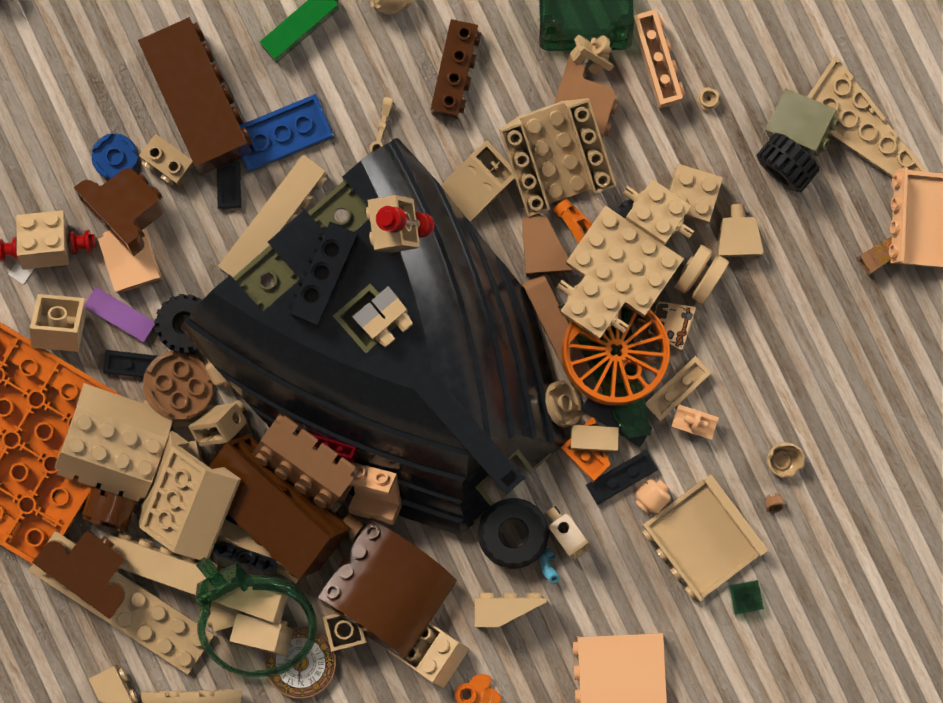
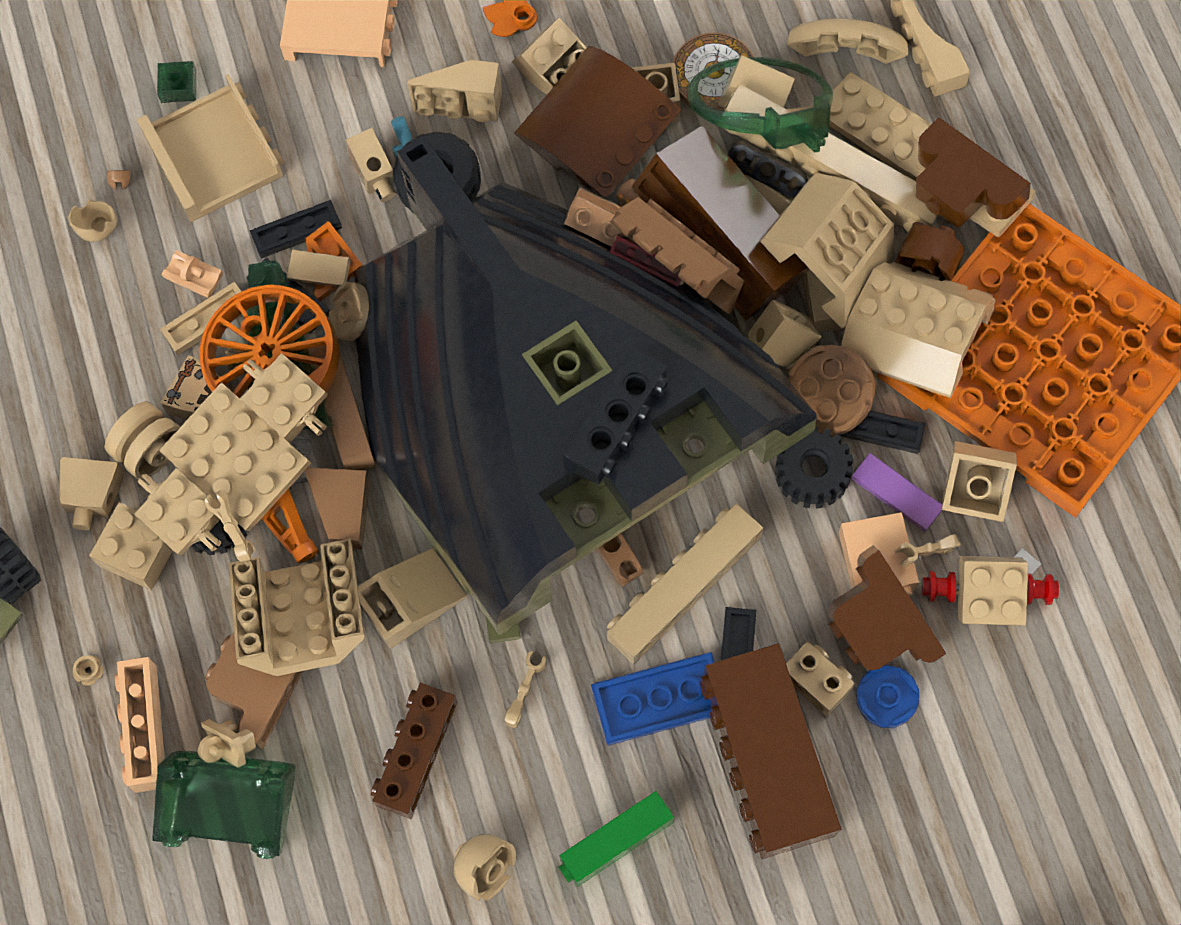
camera: 165 degrees left, 15 degrees down
(82, 274) = (942, 546): none -> tan piece
(391, 309) = (547, 355): tan hips -> none
(396, 224) = (510, 460): tan brick -> none
(623, 212) = (221, 509): none -> tan piece
(653, 496) = (261, 199): light nougat head -> none

